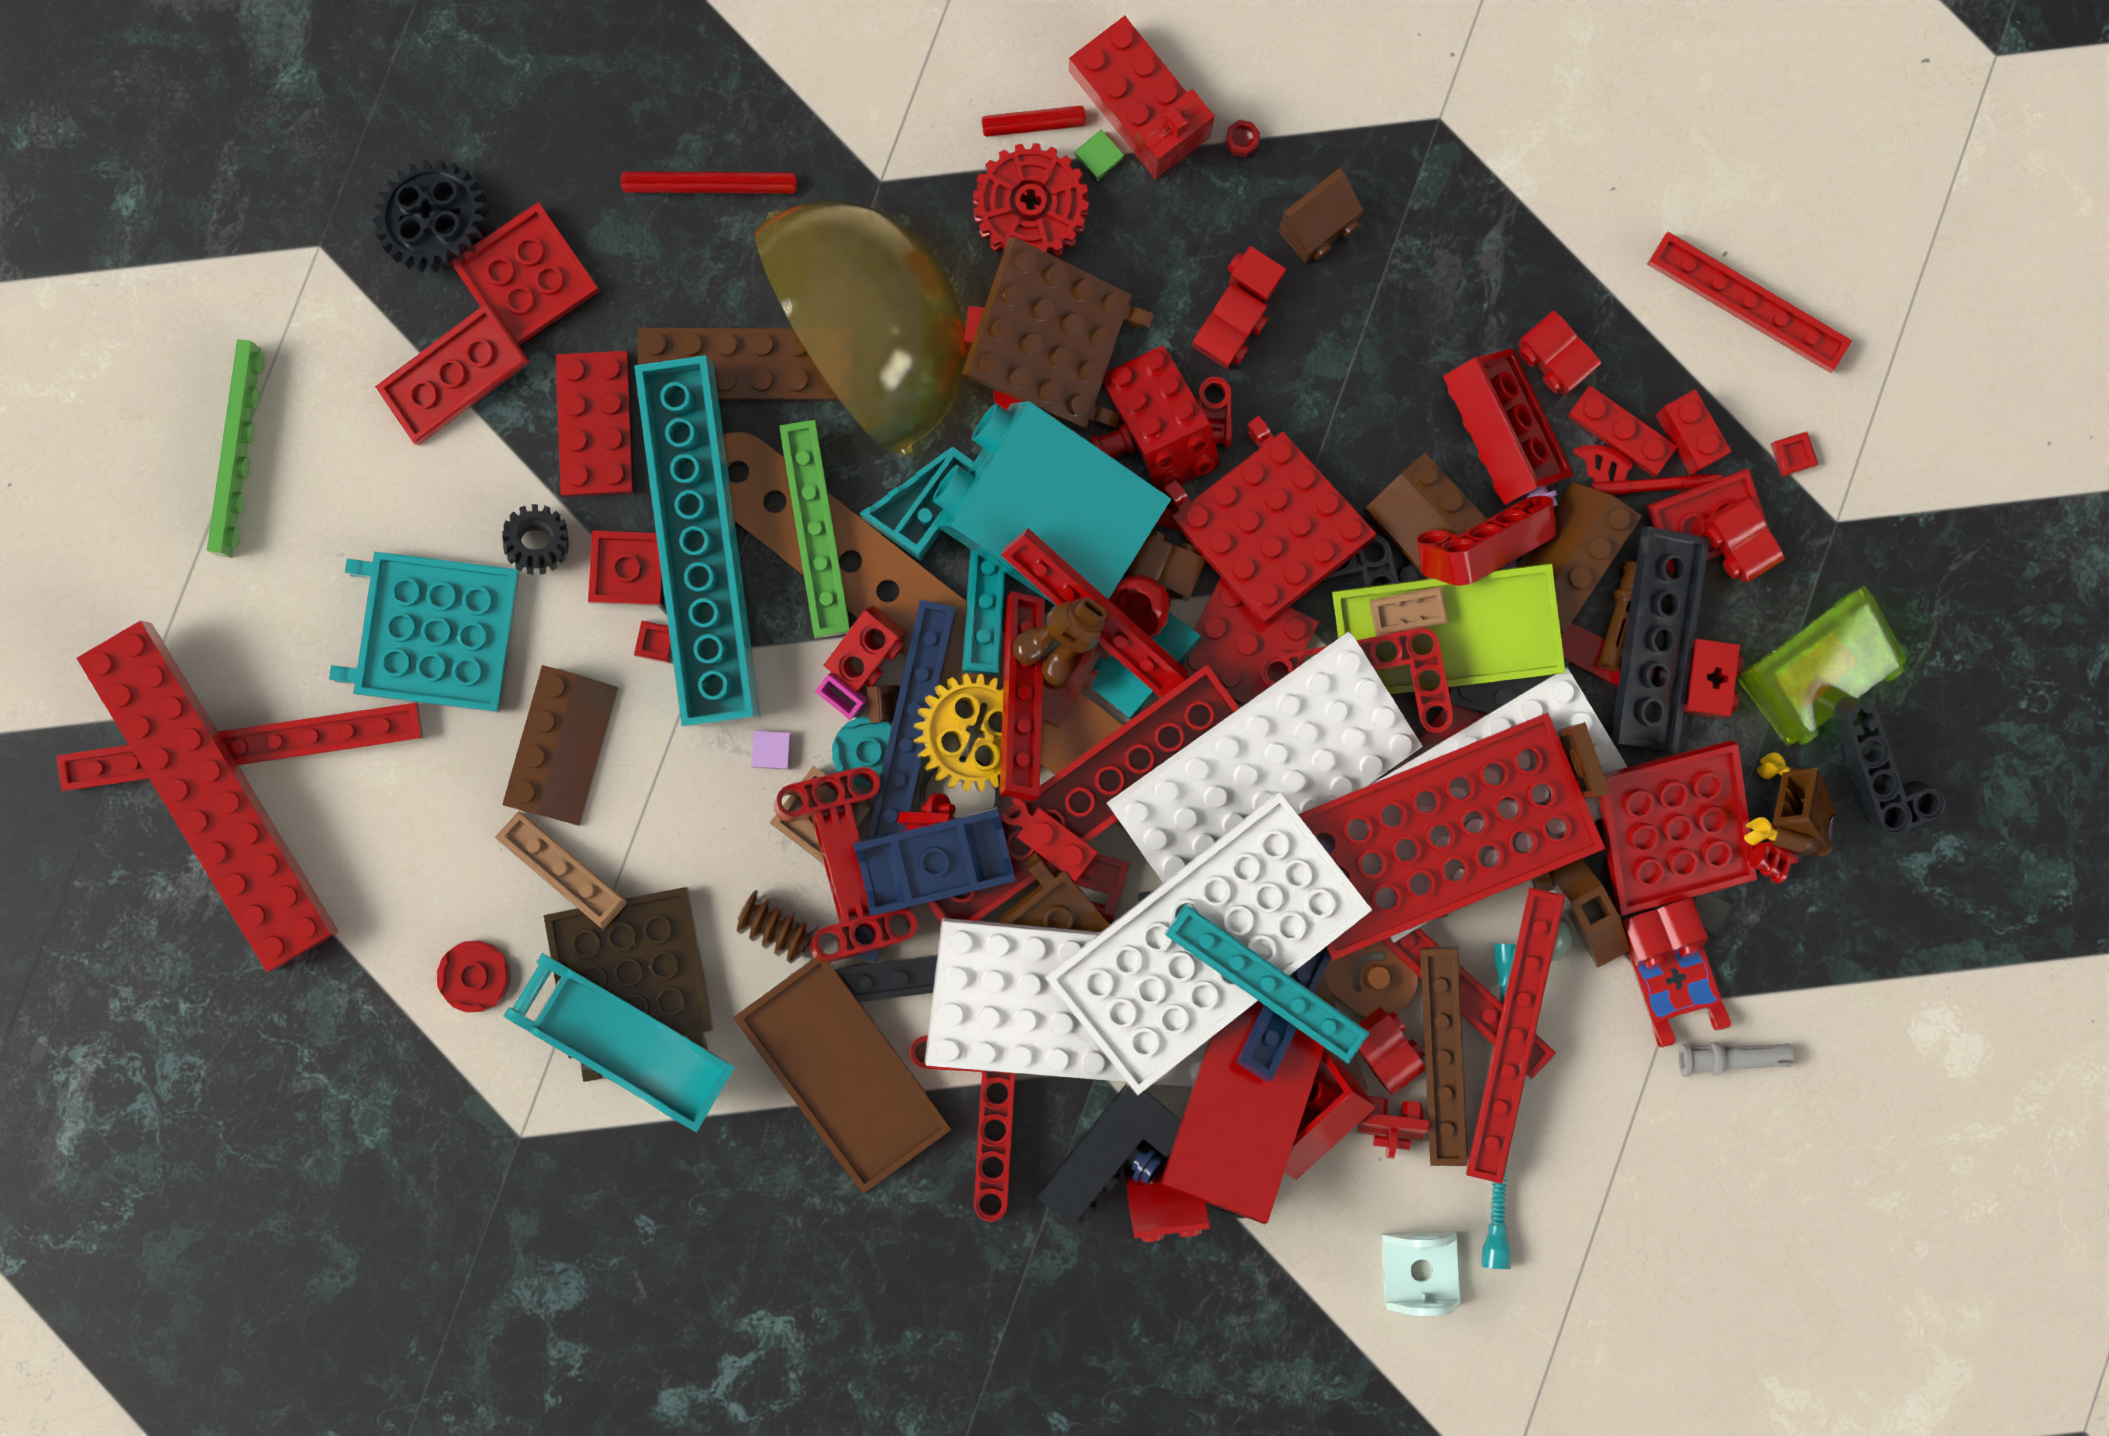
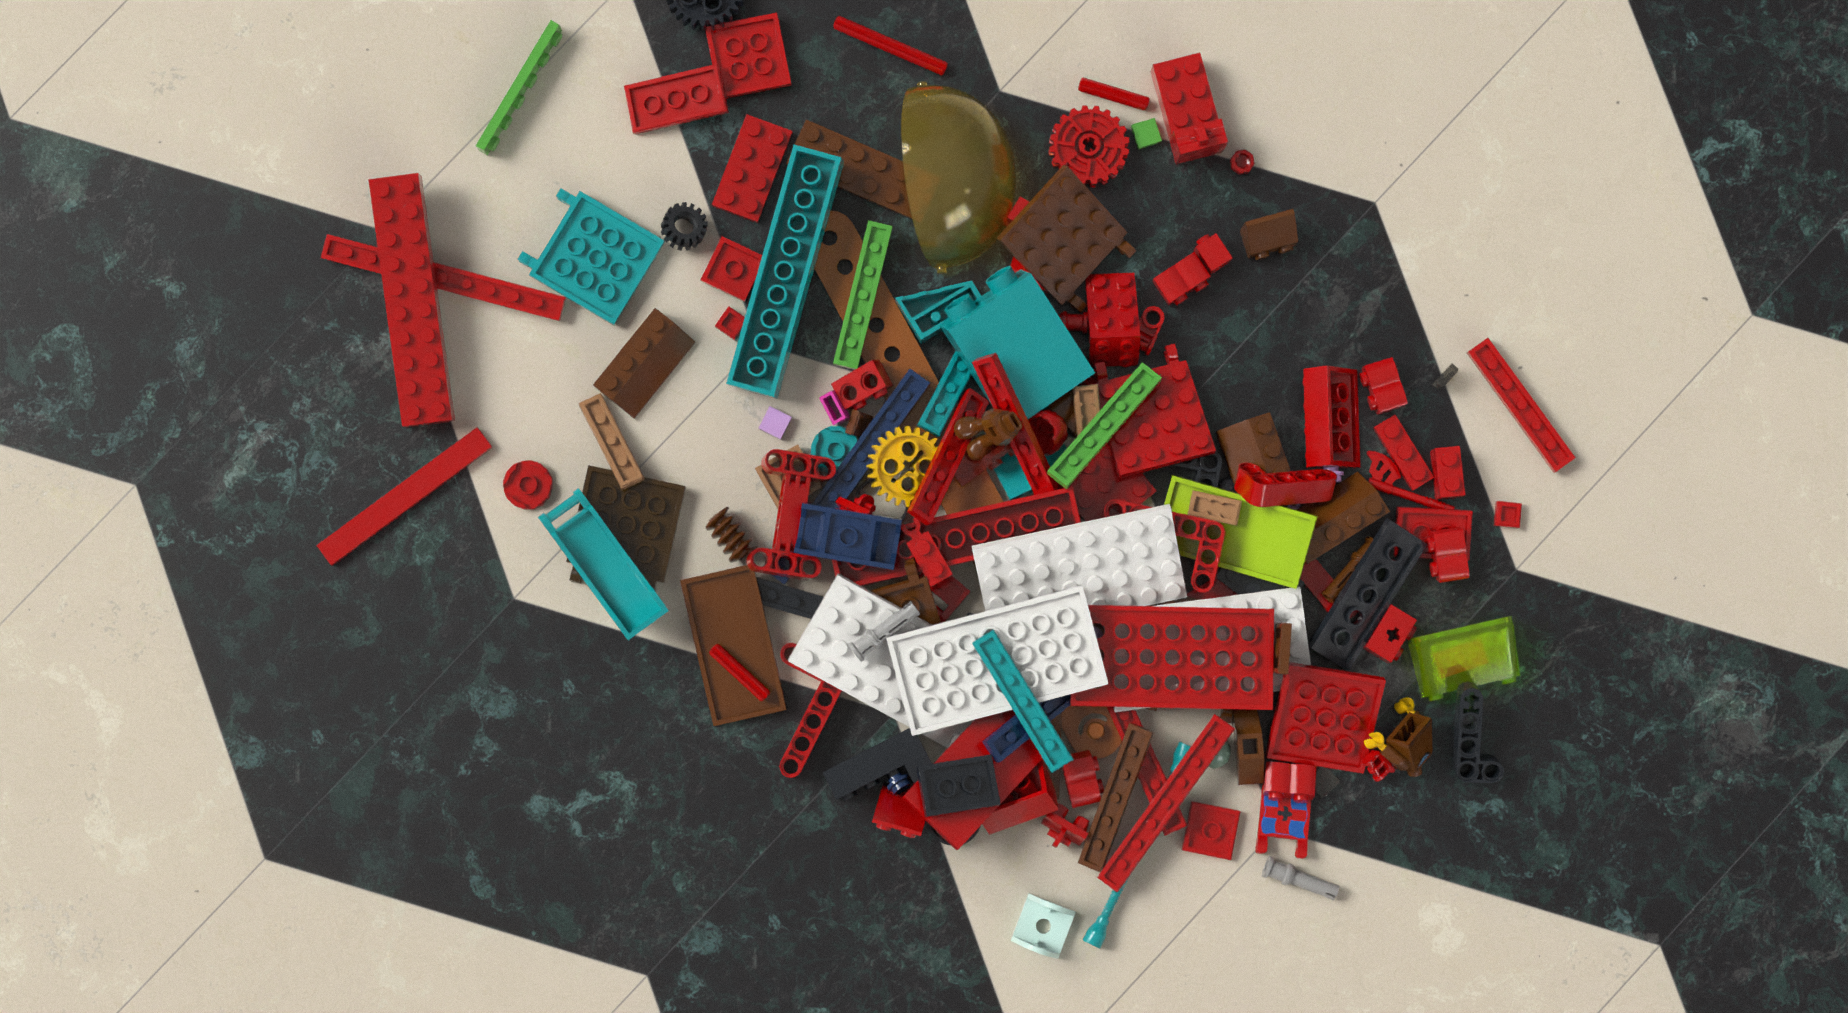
camera: 20 degrees right, 0 degrees up
(312, 1064) = (404, 496): none -> red tile
(867, 1107) = (739, 672): none -> red axle
(1030, 984) = (875, 637): none -> light grey pin
(1182, 554) = (1085, 405): none -> medium nougat plate
(1214, 565) = (1104, 425): none -> bright green plate
(1229, 1137) = (958, 785): none -> black plate
(1588, 1044) = (1211, 830): none -> red tile
(1634, 307) = (1445, 376): none -> clear smoke tile

